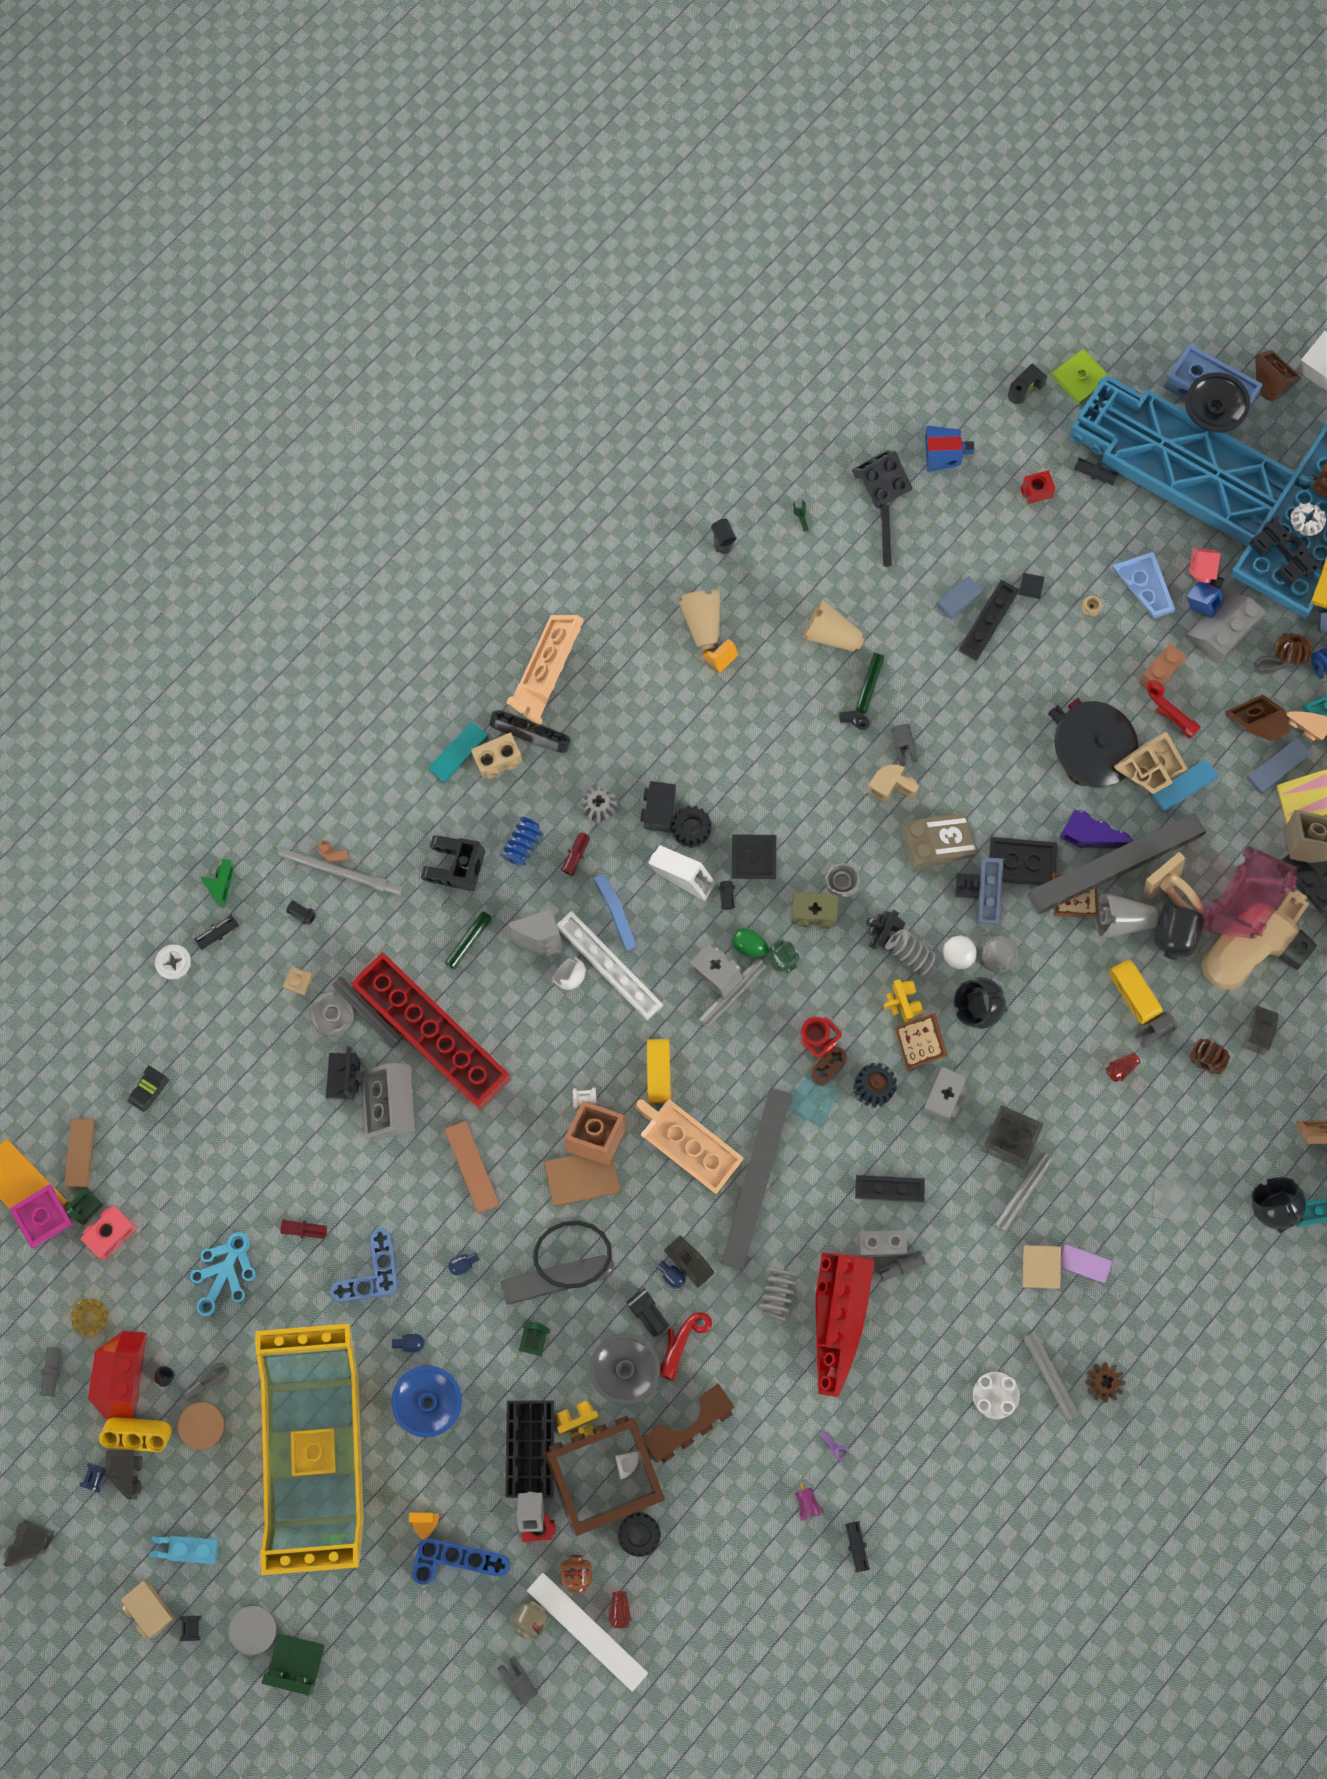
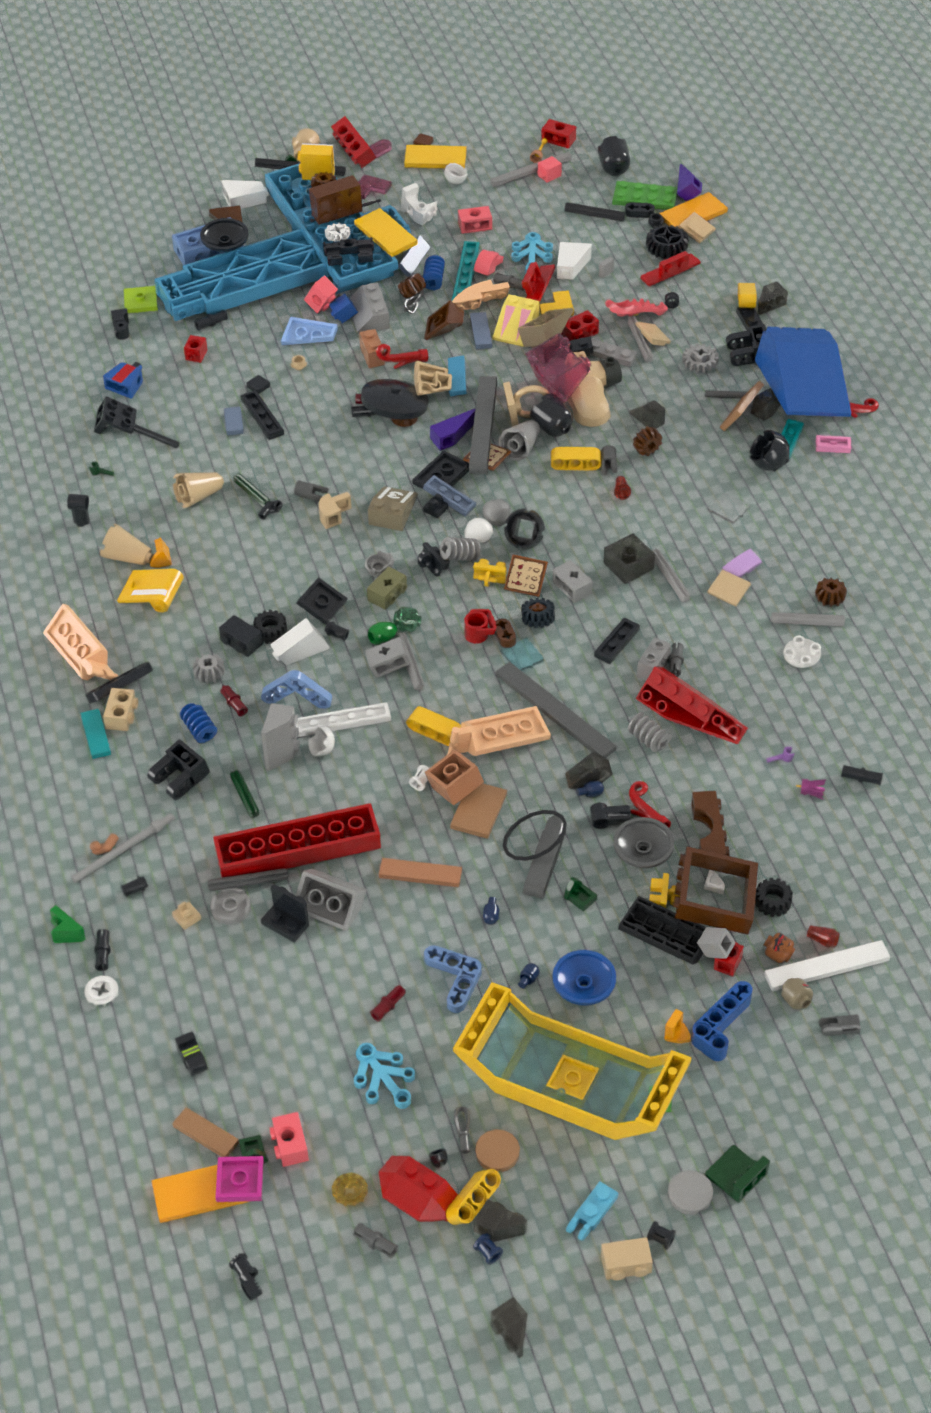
camera: 60 degrees left, 25 degrees down
(670, 677) = (152, 586): none -> yellow door

